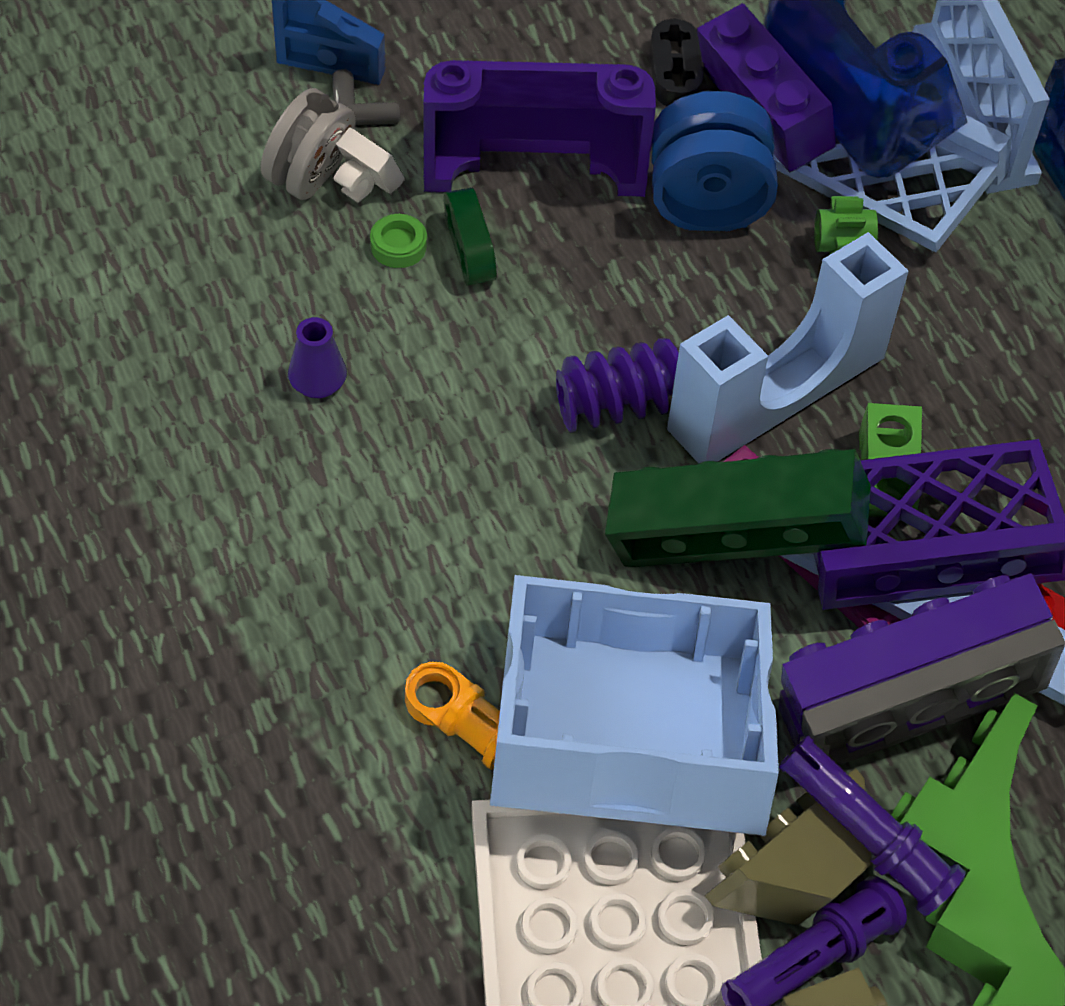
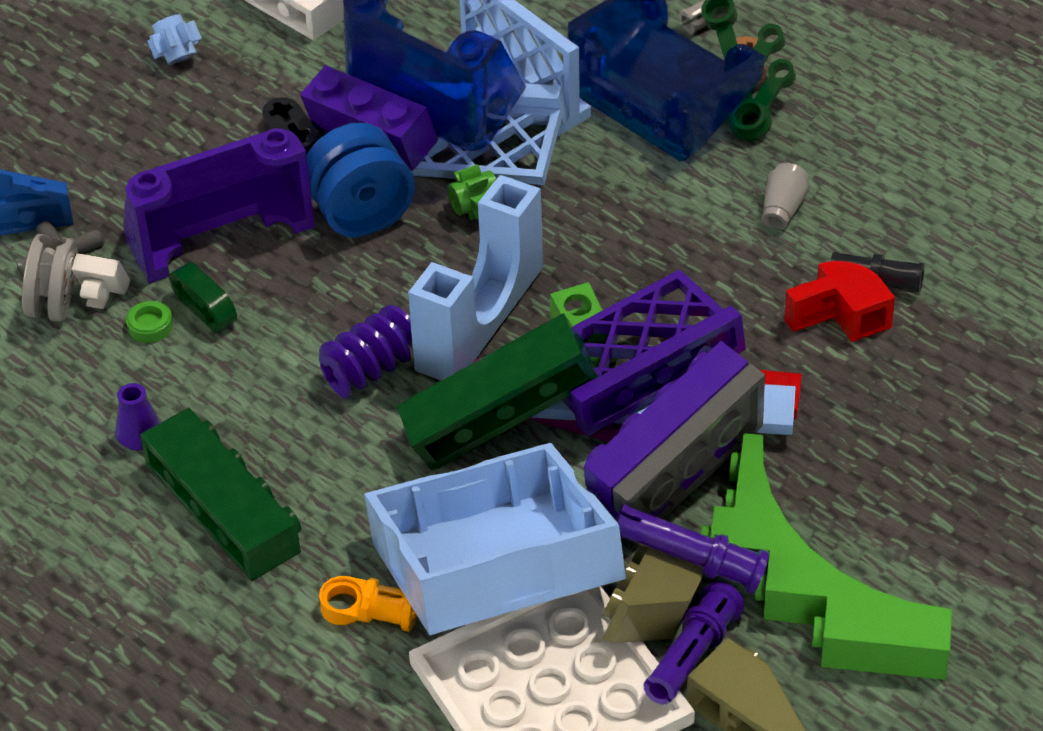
camera: 20 degrees left, 10 degrees down
(364, 496) = (222, 493): none -> dark green brick

